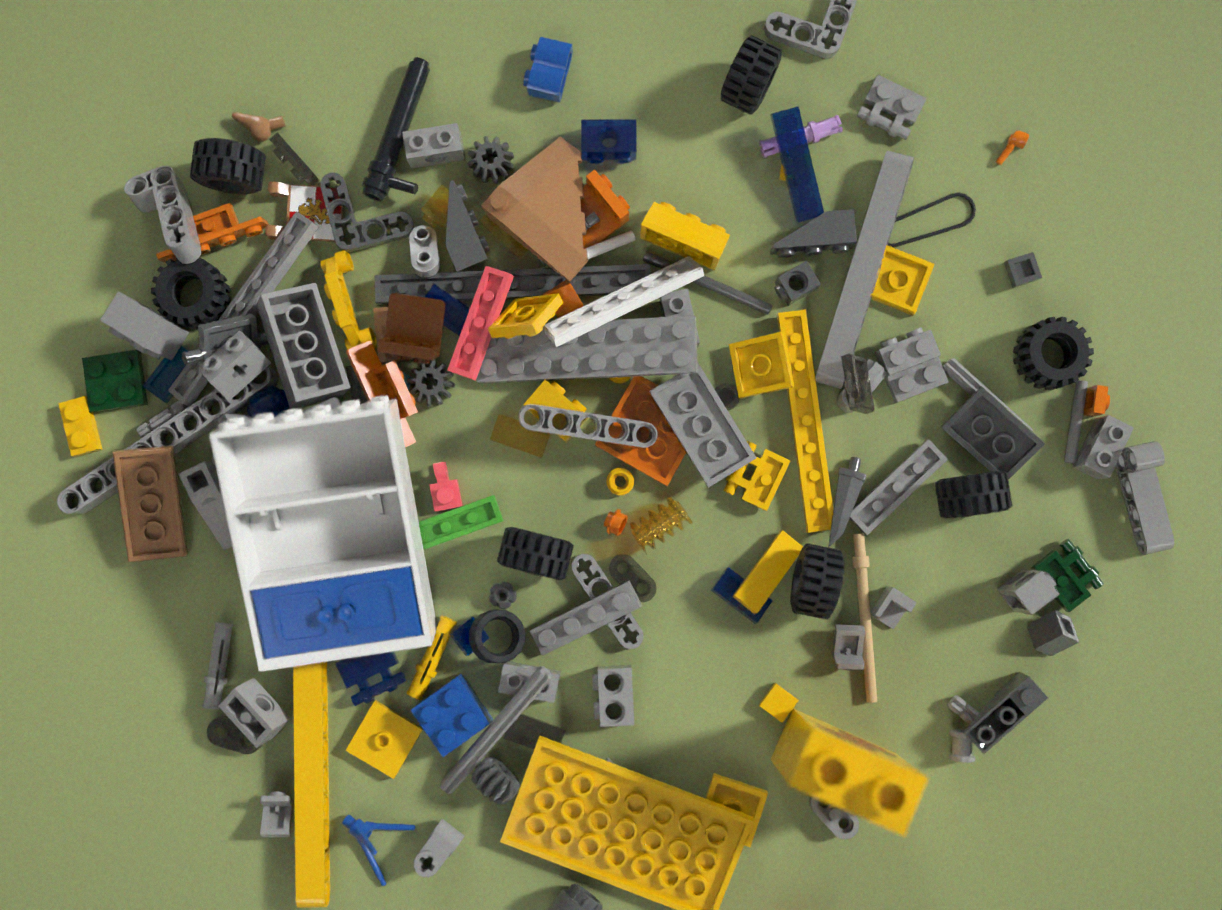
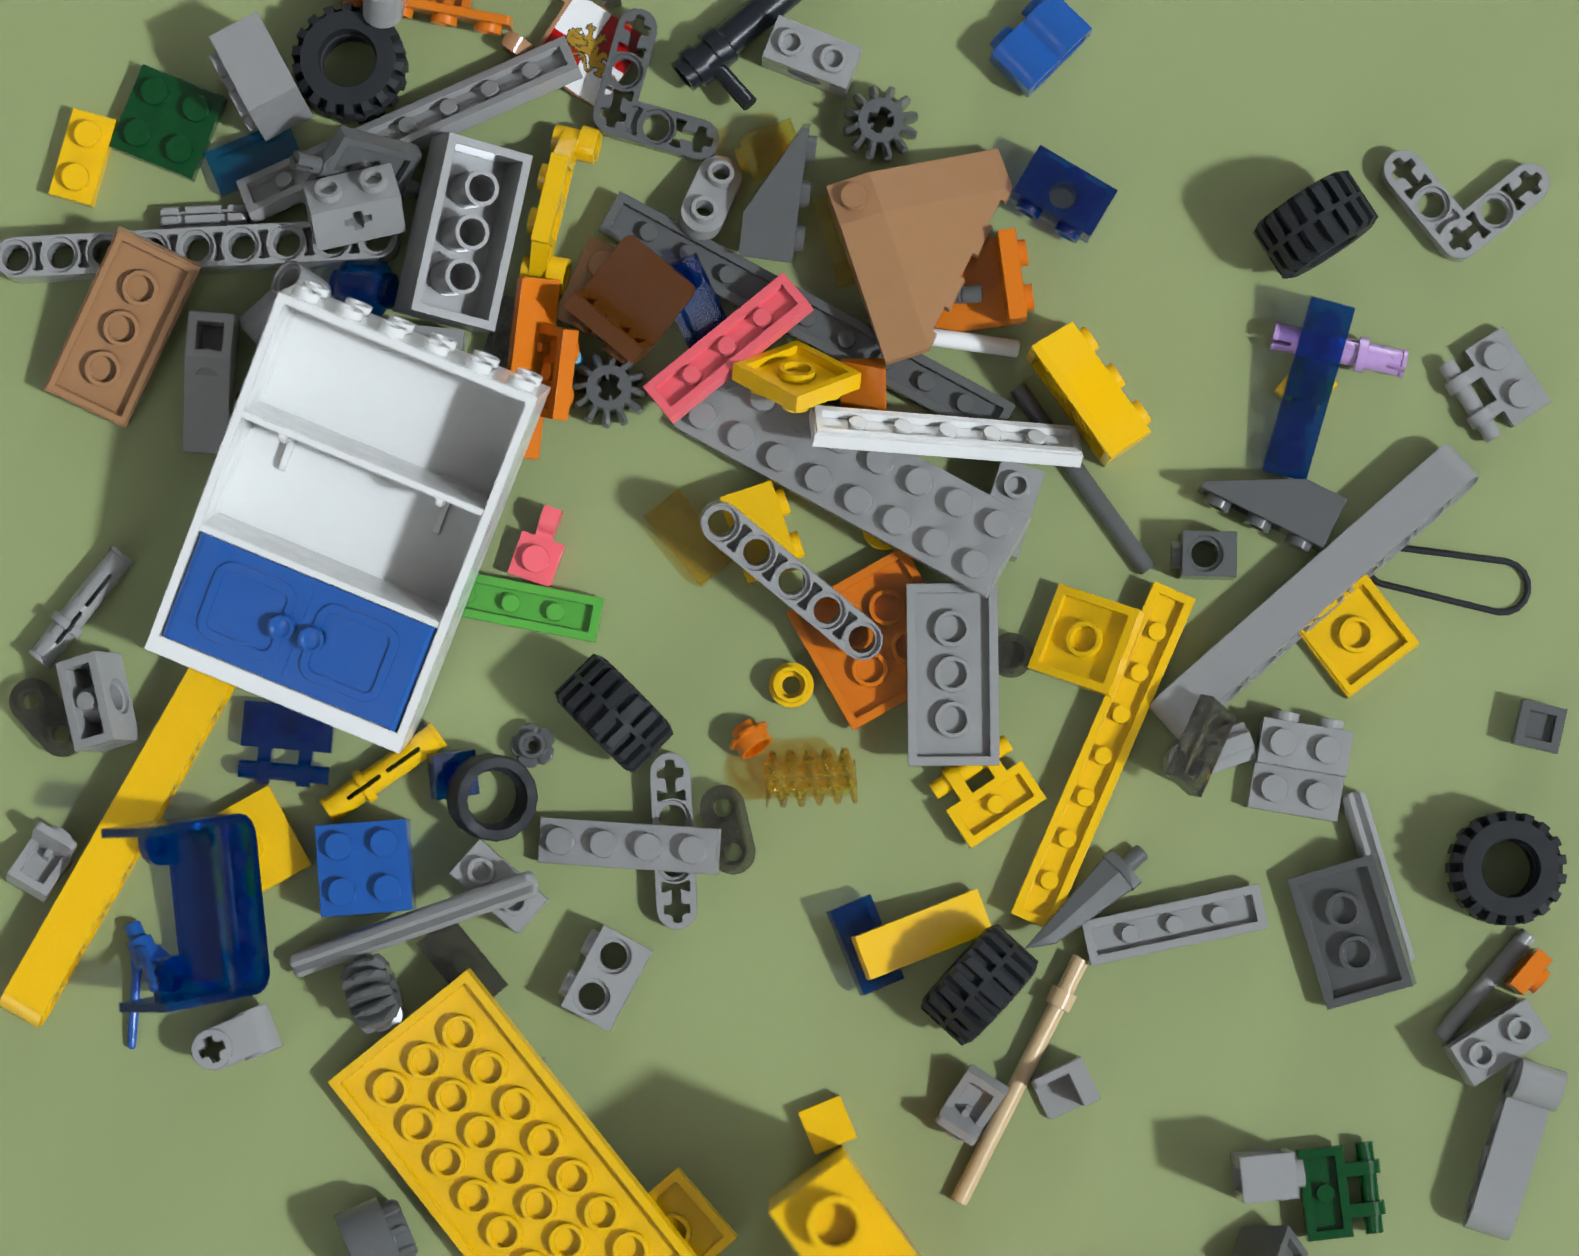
camera: 25 degrees right, 0 degrees up
(385, 787) = (214, 910): none -> clear blue windscreen
(973, 494) = (1269, 995): black tyre -> none

